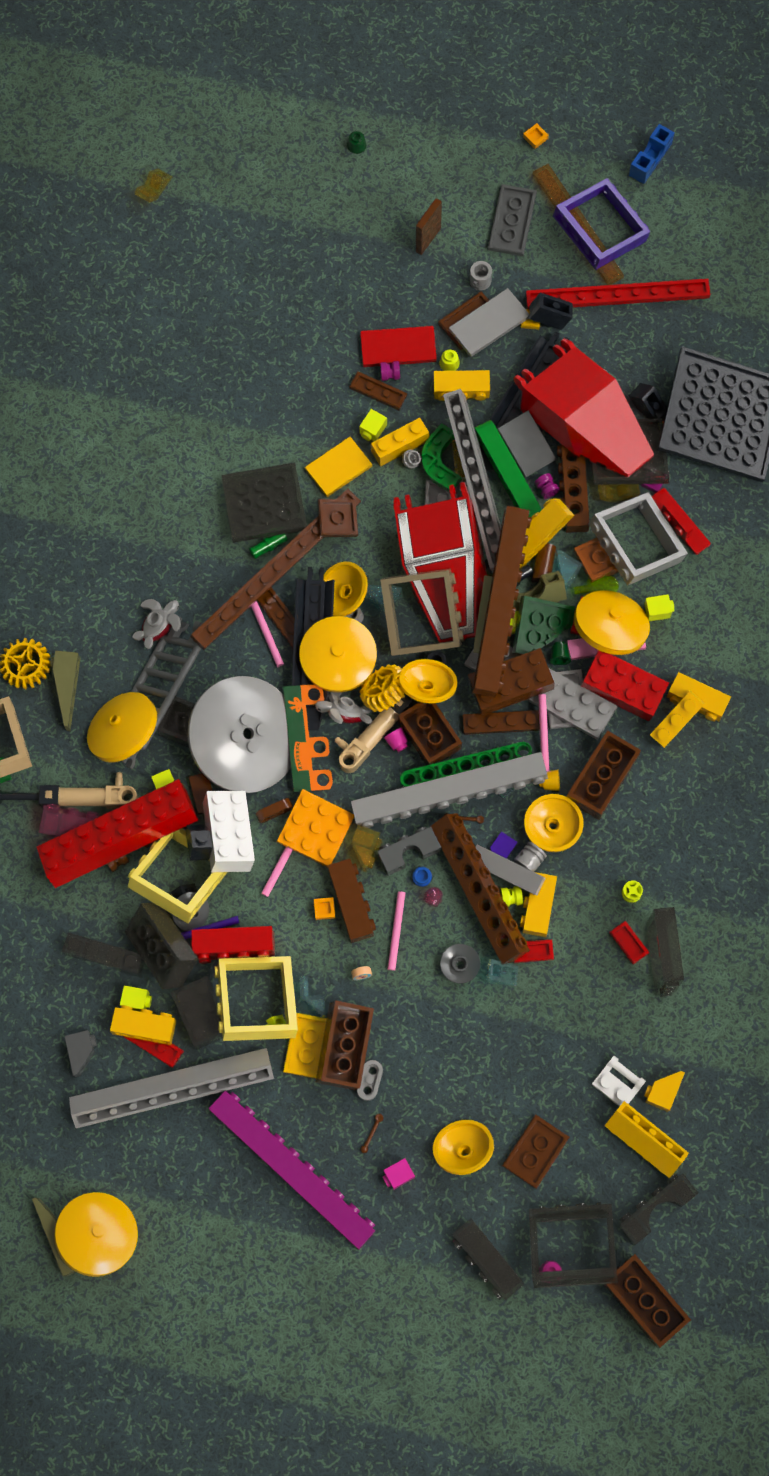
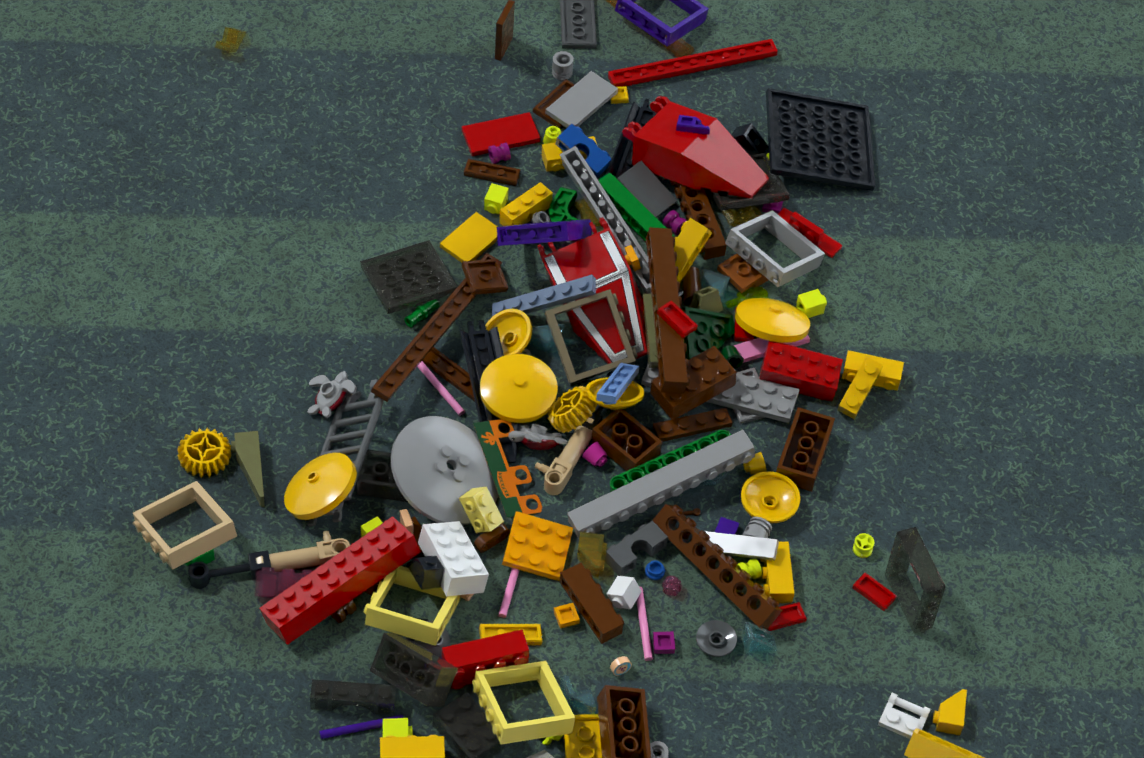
camera: 20 degrees left, 20 degrees down
(106, 983) = (354, 728): none -> dark purple bar
(195, 781) = (405, 520): none -> light nougat tile
(264, 916) = (531, 631): none -> yellow tile
(267, 784) = (481, 509): none -> light yellow brick
(377, 485) = (543, 232): none -> dark purple window
(384, 897) = (624, 592): none -> white brick
(389, 559) = (549, 296): none -> sand blue plate
(409, 956) = (663, 642): none -> magenta plate
(431, 675) = (617, 383): none -> medium blue plate
(463, 375) = (596, 158): none -> blue arch
(482, 534) = (632, 258): none -> light orange plate
(505, 619) = (677, 319): none -> red tile
(543, 729) = (731, 409): bright pink bar -> none
(551, 311) = (637, 81): black brick -> none
(585, 384) = (691, 124): none -> dark purple tile

